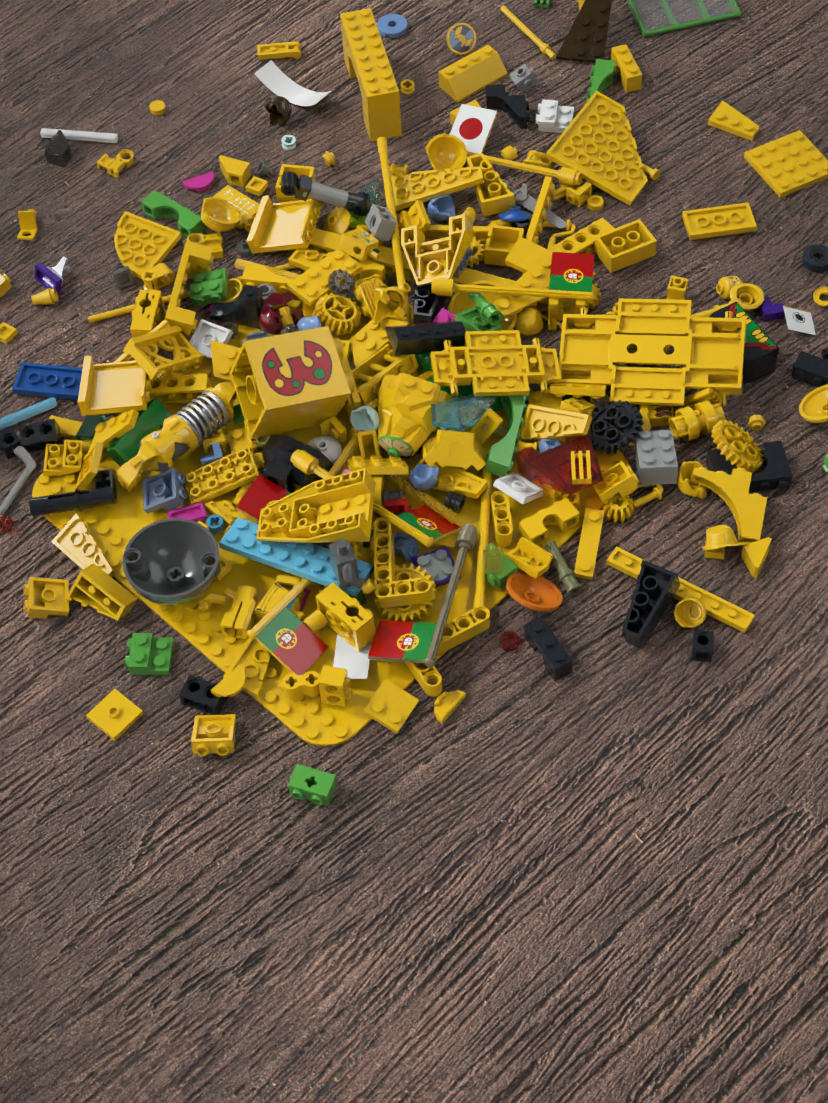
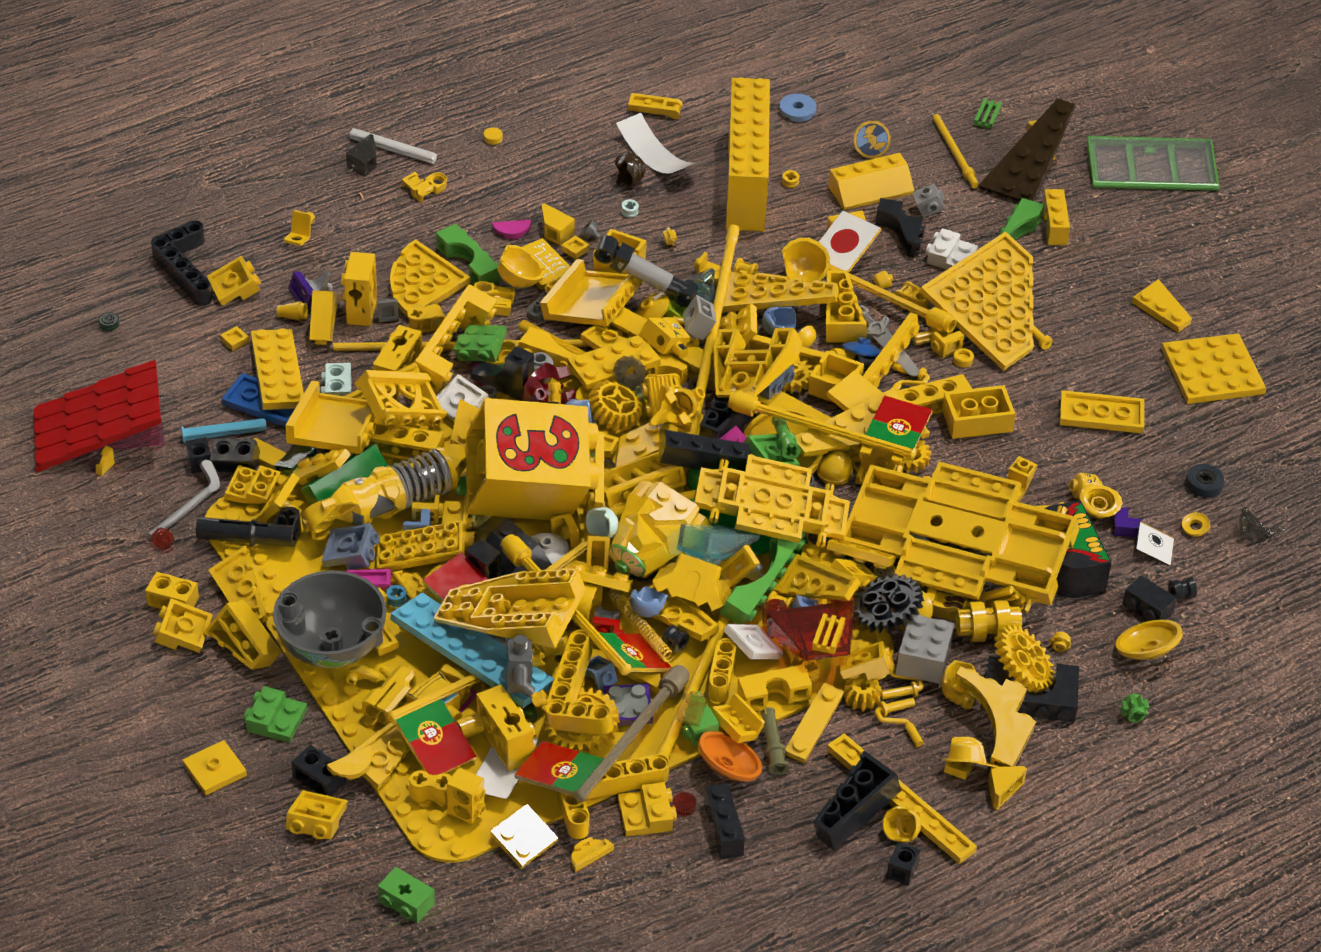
camera: 10 degrees right, 10 degrees down
(22, 567) = (166, 586): none -> yellow brick
(50, 351) = (277, 368): none -> yellow plate
(73, 297) = (323, 316): none -> yellow arch
(96, 265) = (360, 288): none -> yellow piece
(102, 348) = (337, 379): none -> light aqua brick
(365, 177) = (702, 264): none -> yellow bracket
(482, 655) = (647, 810): none -> yellow plate
(640, 515) = (883, 710): none -> yellow piece

